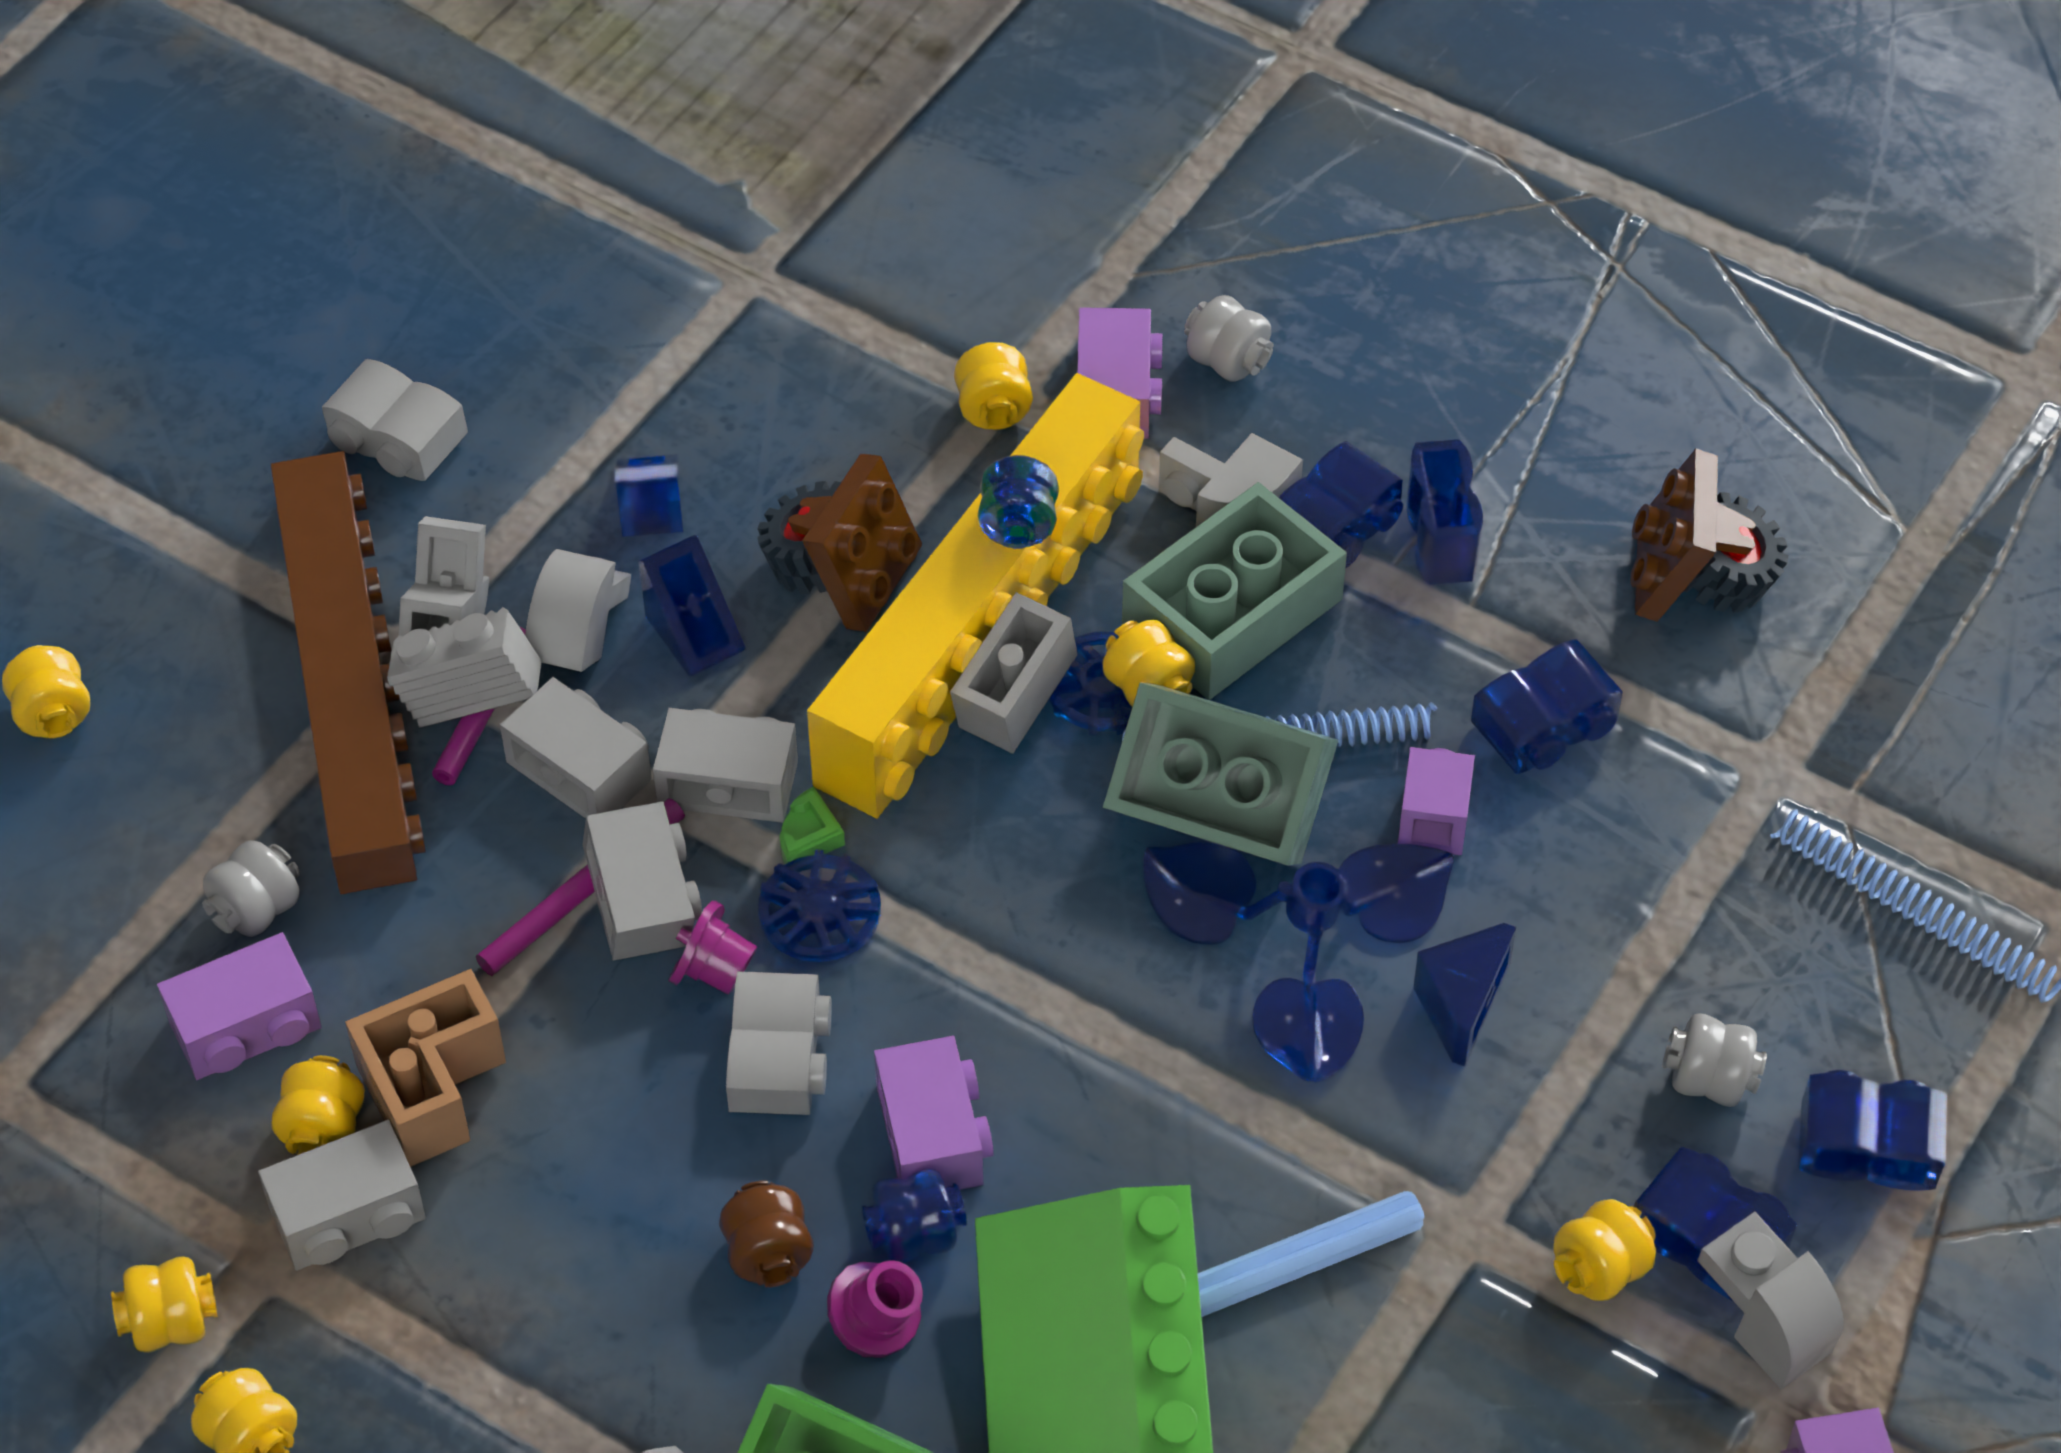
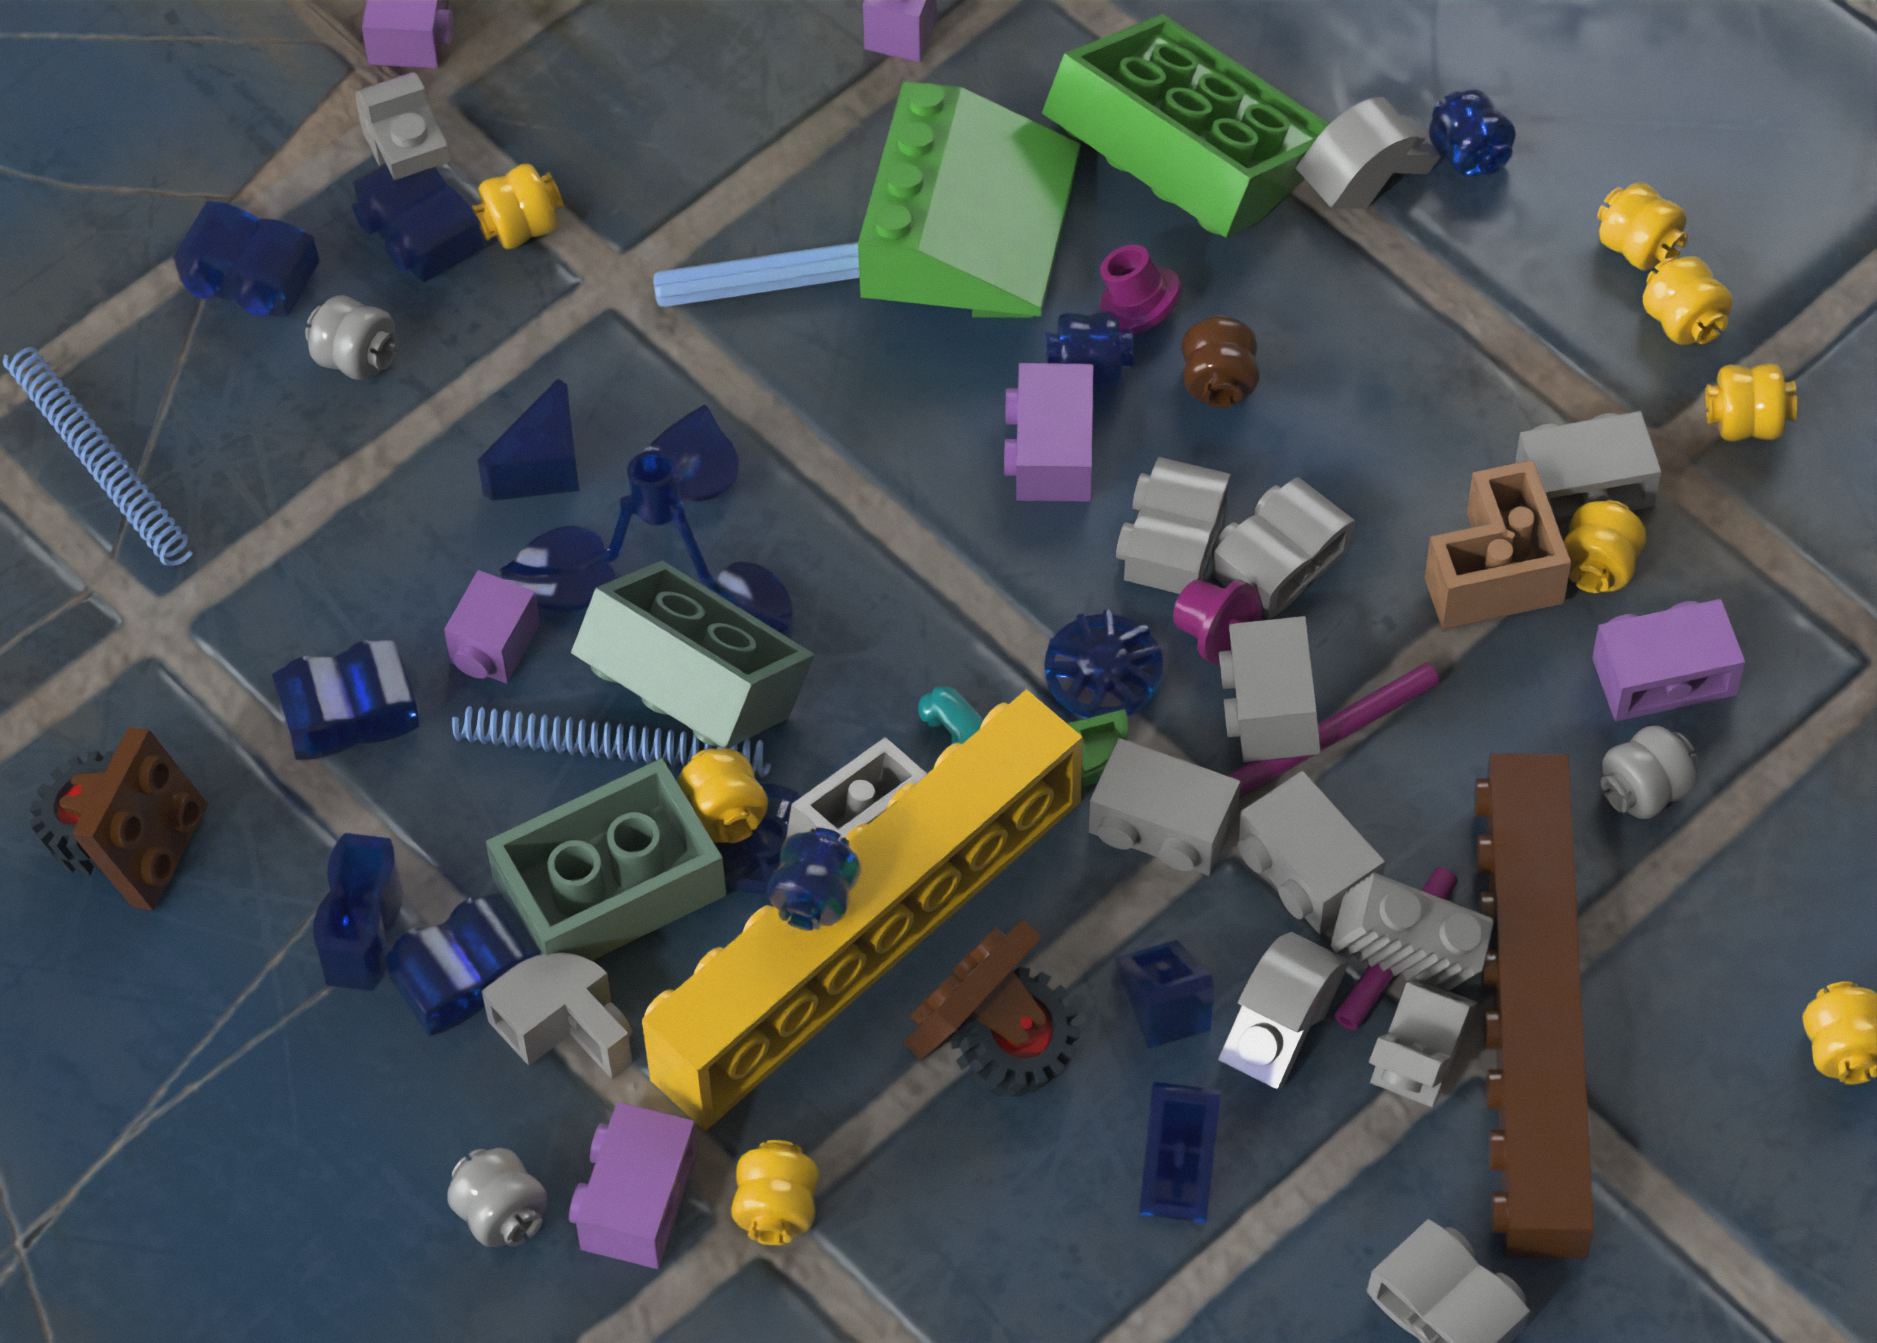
camera: 165 degrees left, 5 degrees up
(658, 1044) = (1283, 545): none -> light grey brick
(948, 817) = (951, 709): none -> teal arm

